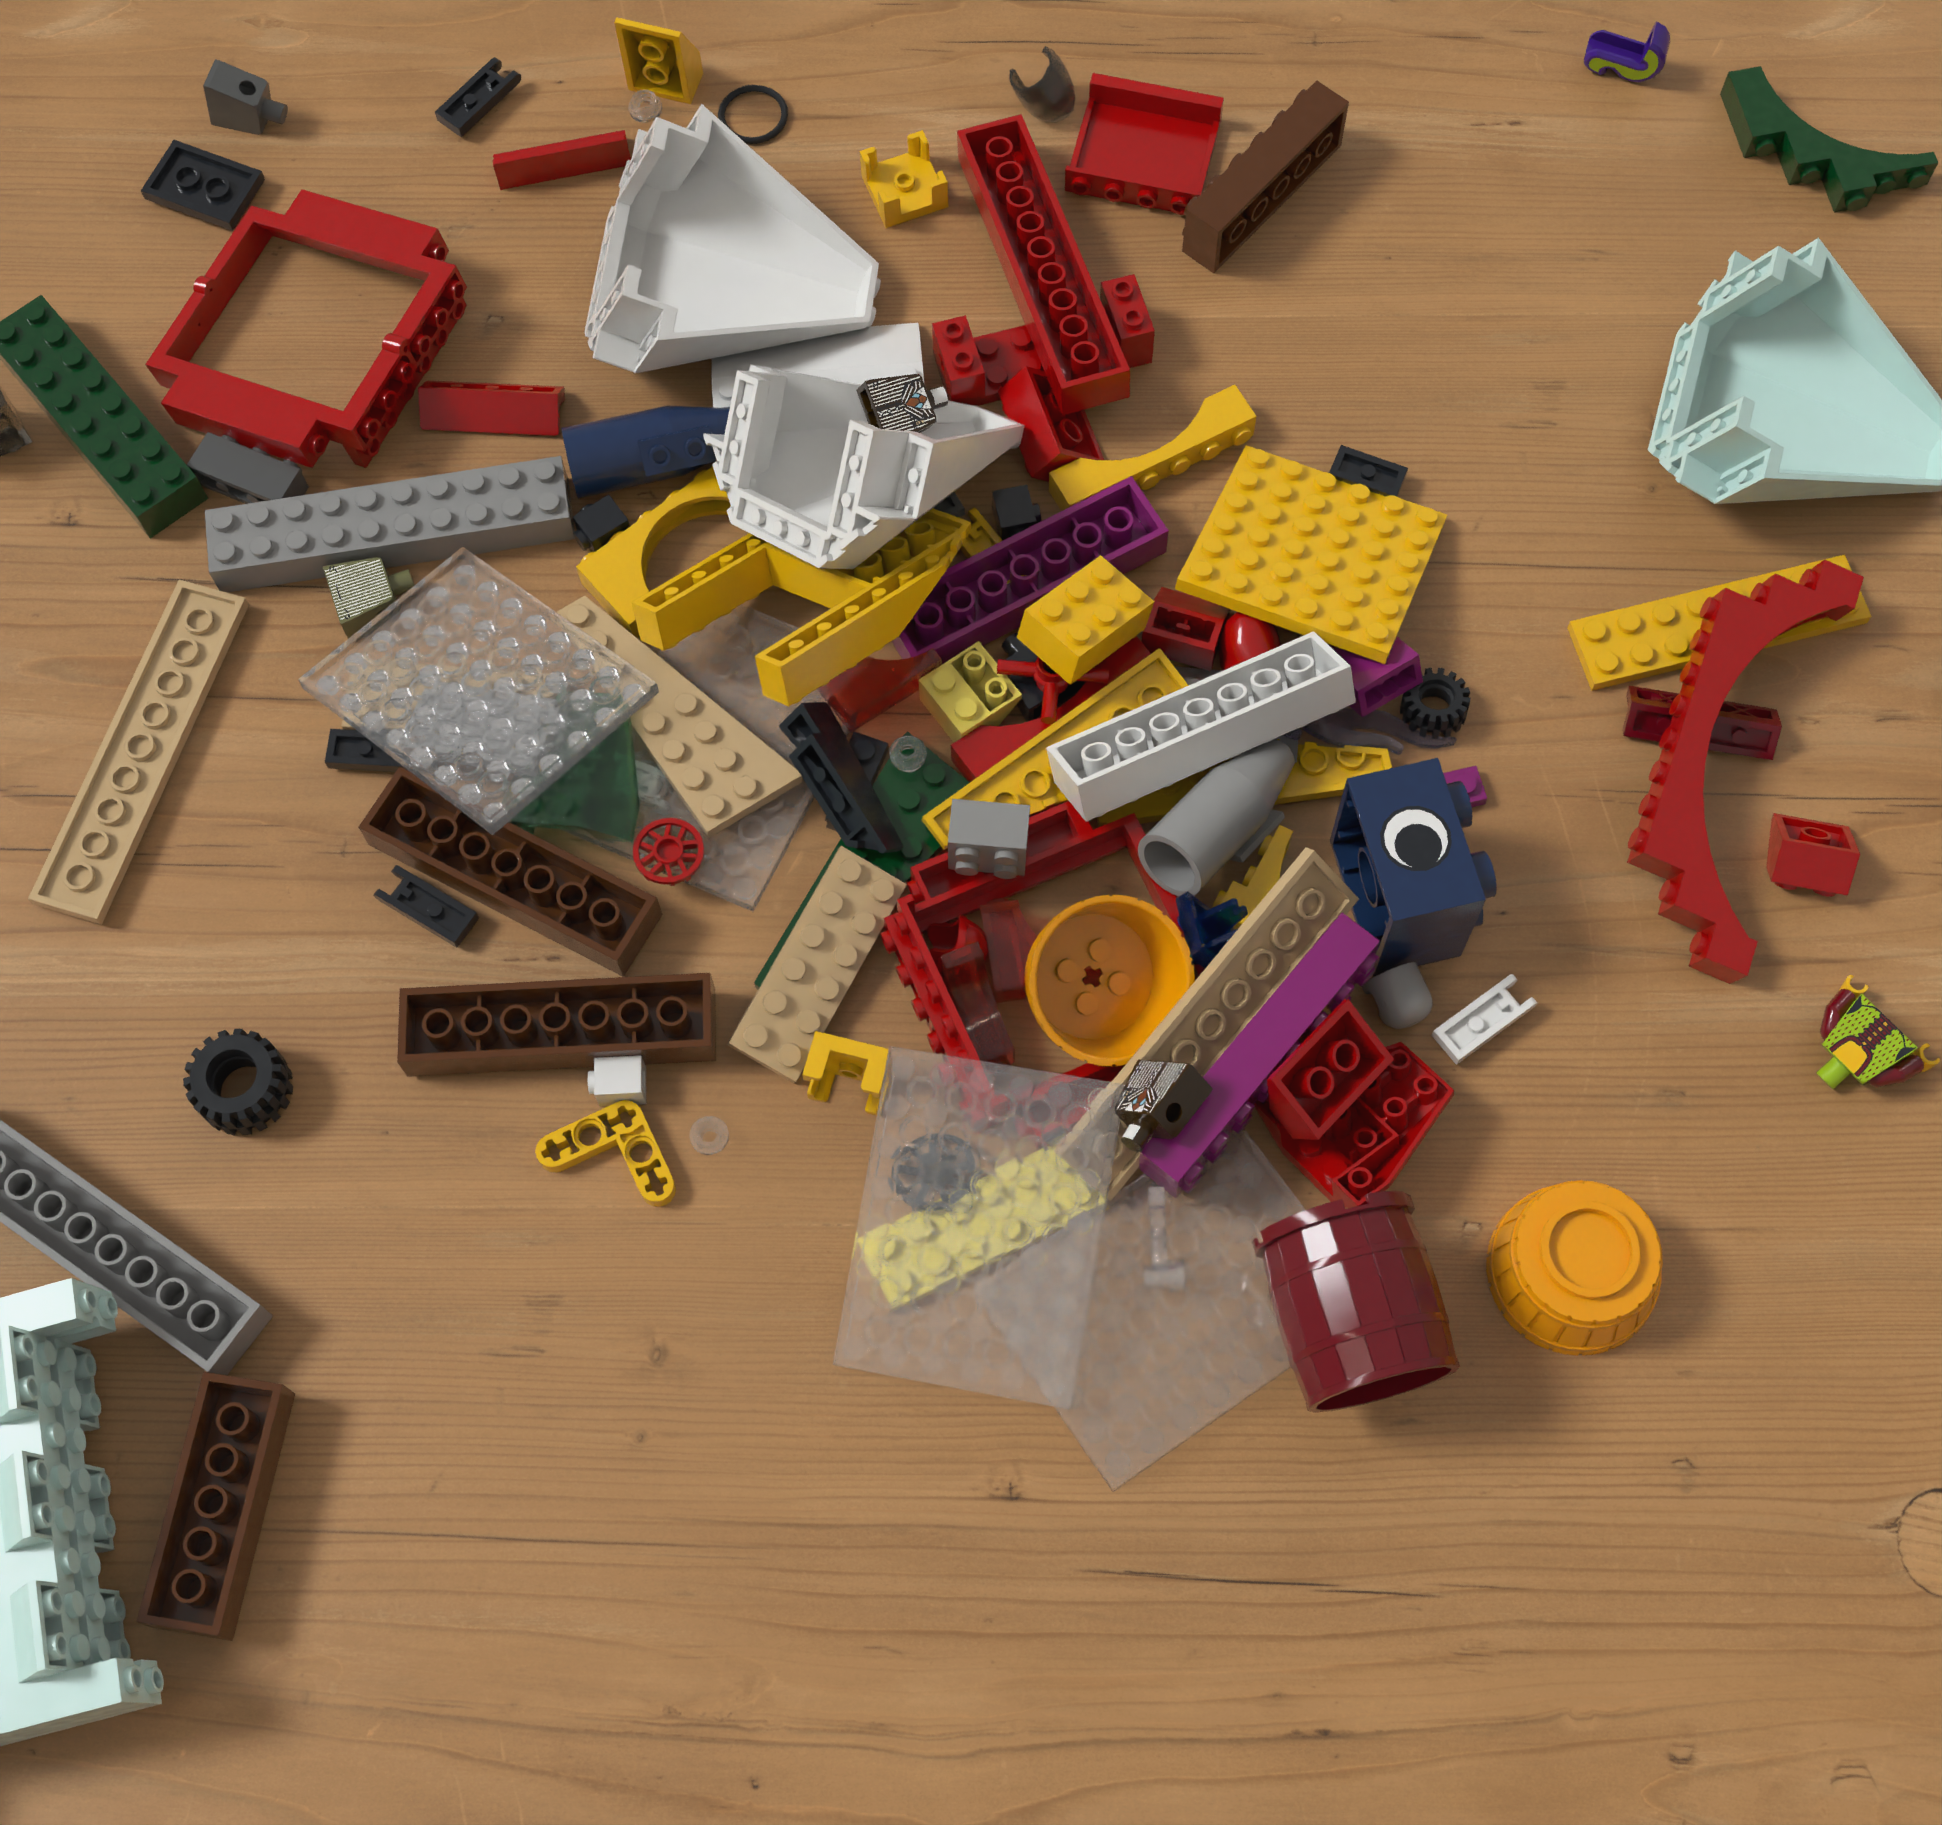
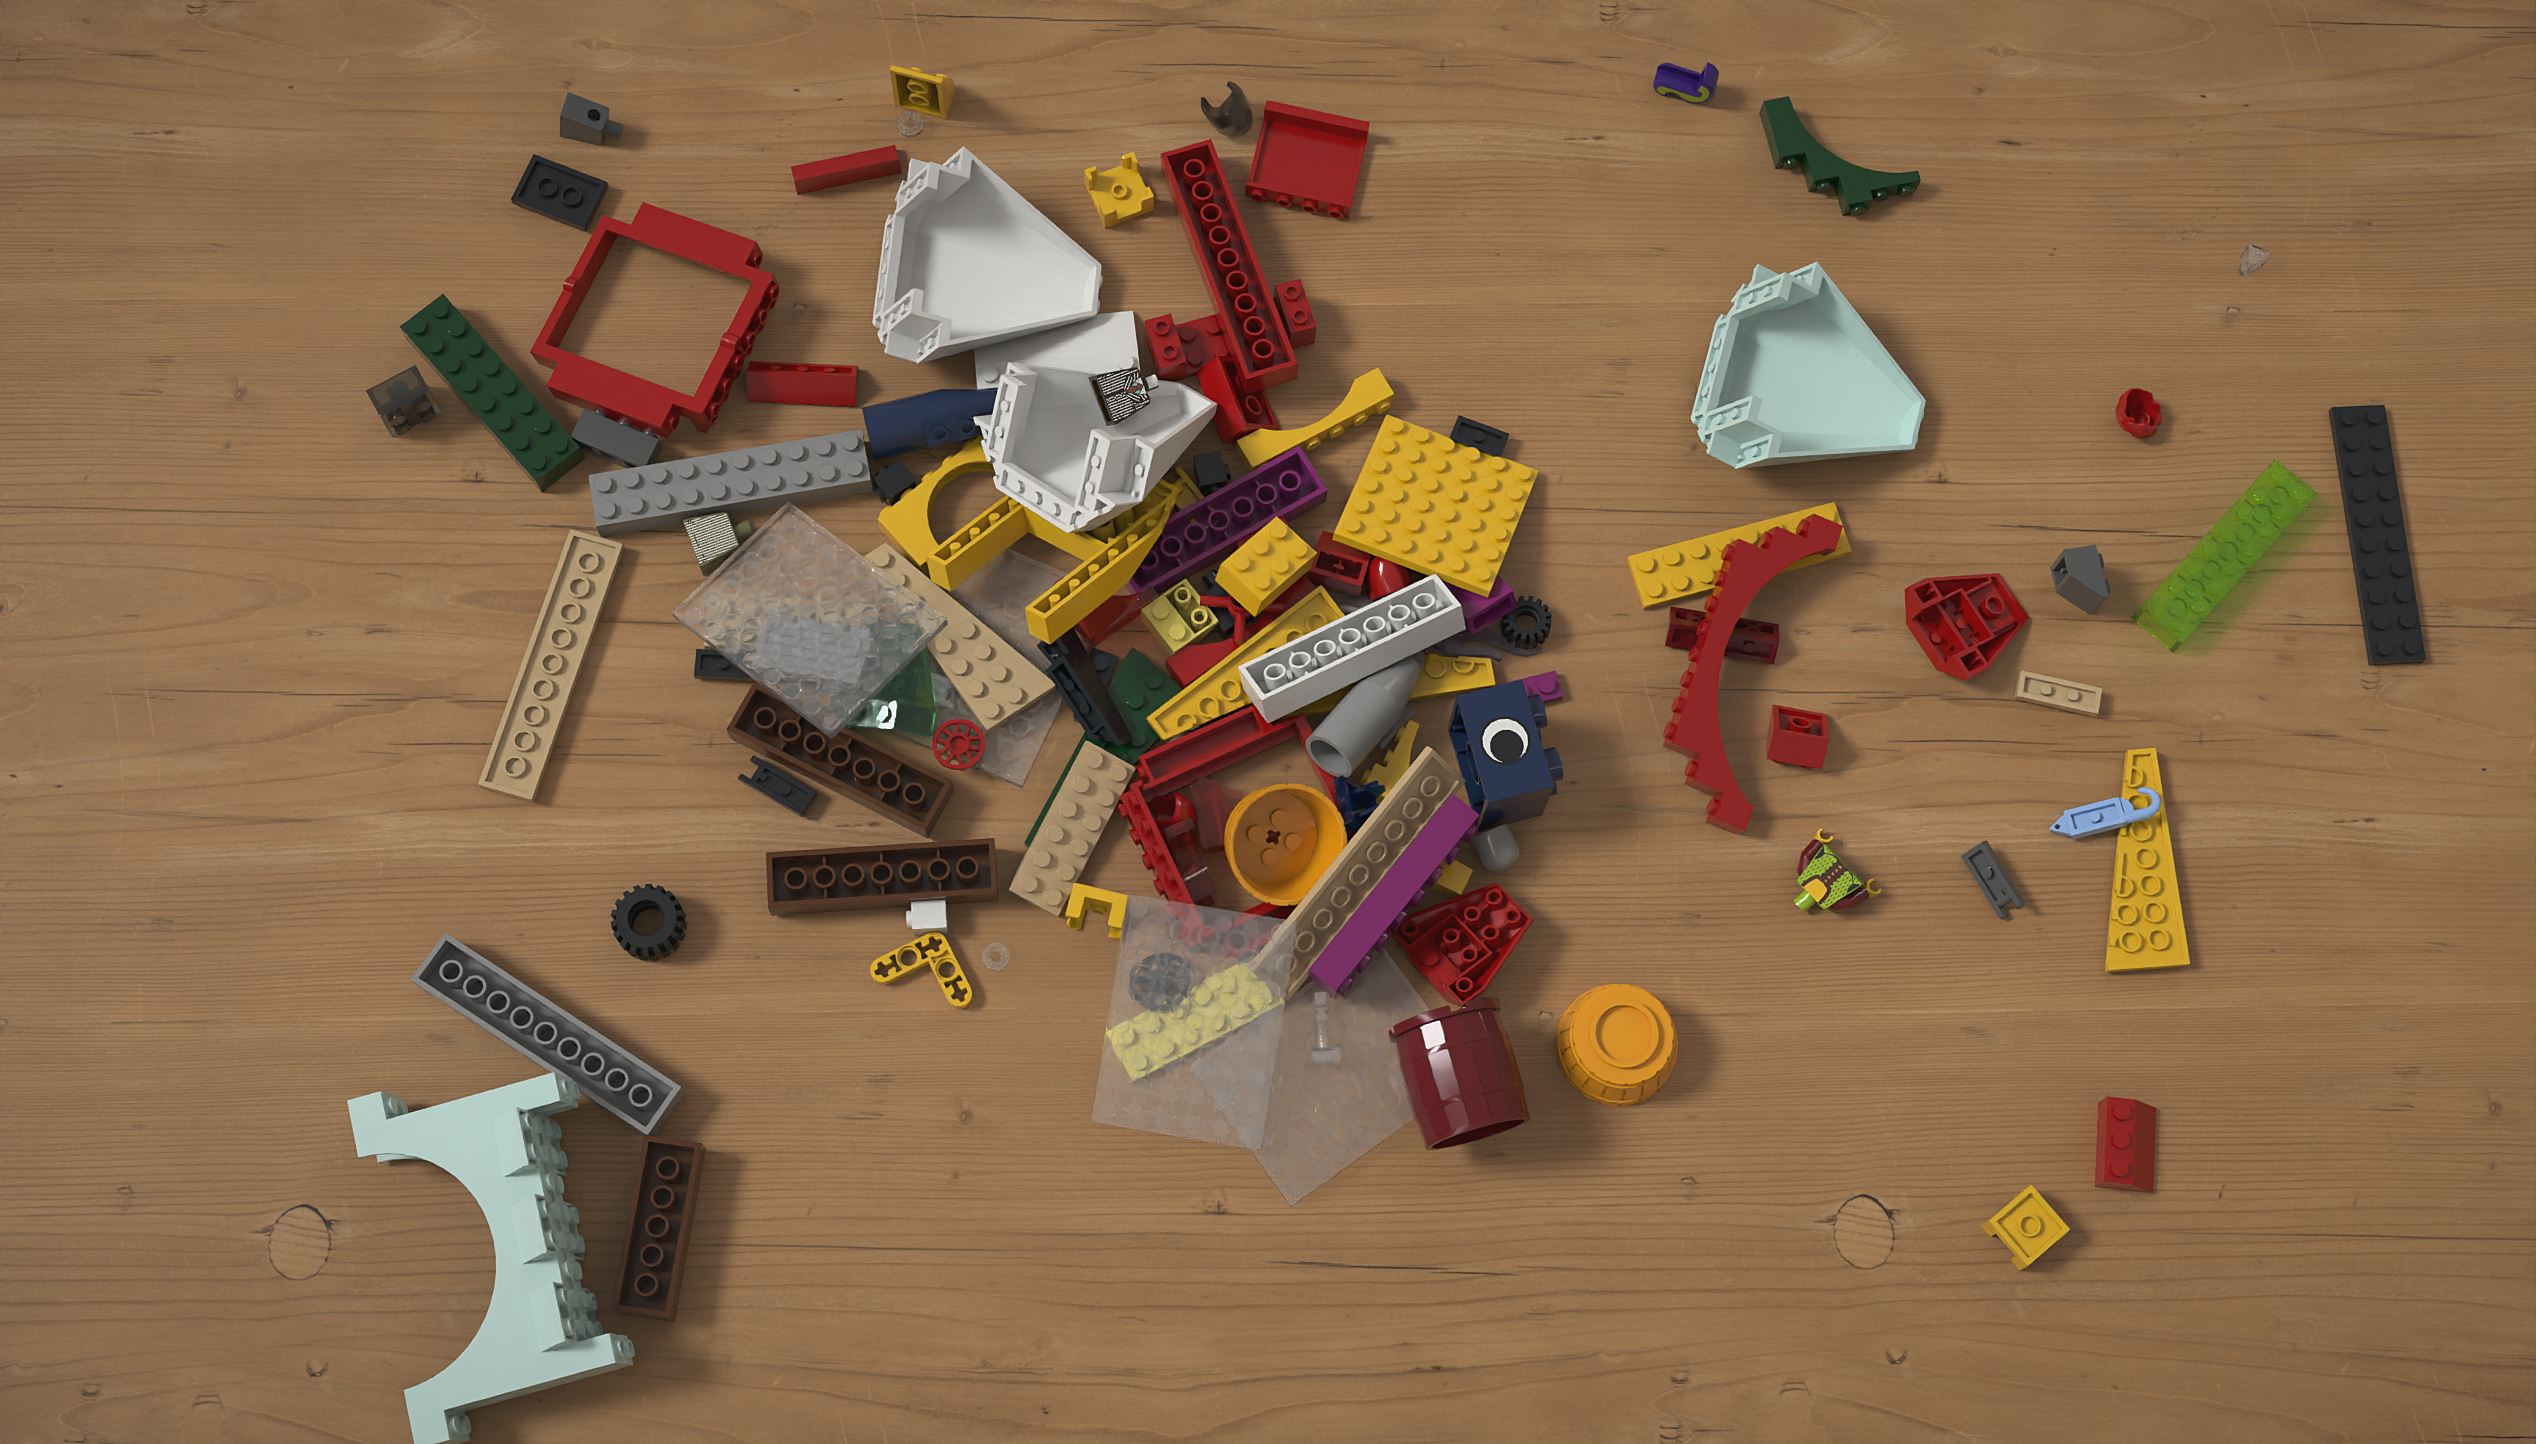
camera: 10 degrees left, 5 degrees up
(476, 98) = (774, 116): black hinge -> none
(756, 88) = (1001, 151): black tyre -> none
(911, 762) = (1138, 672): clear plate -> none
(988, 838) = (1196, 737): light grey brick -> none
(1159, 1101) = (1322, 933): dark brown torso -> none
(1264, 176) = (1401, 190): reddish brown brick -> none
(1326, 1073) = (1441, 910): red slope -> none
(1481, 1020) = (1555, 865): white hinge -> none

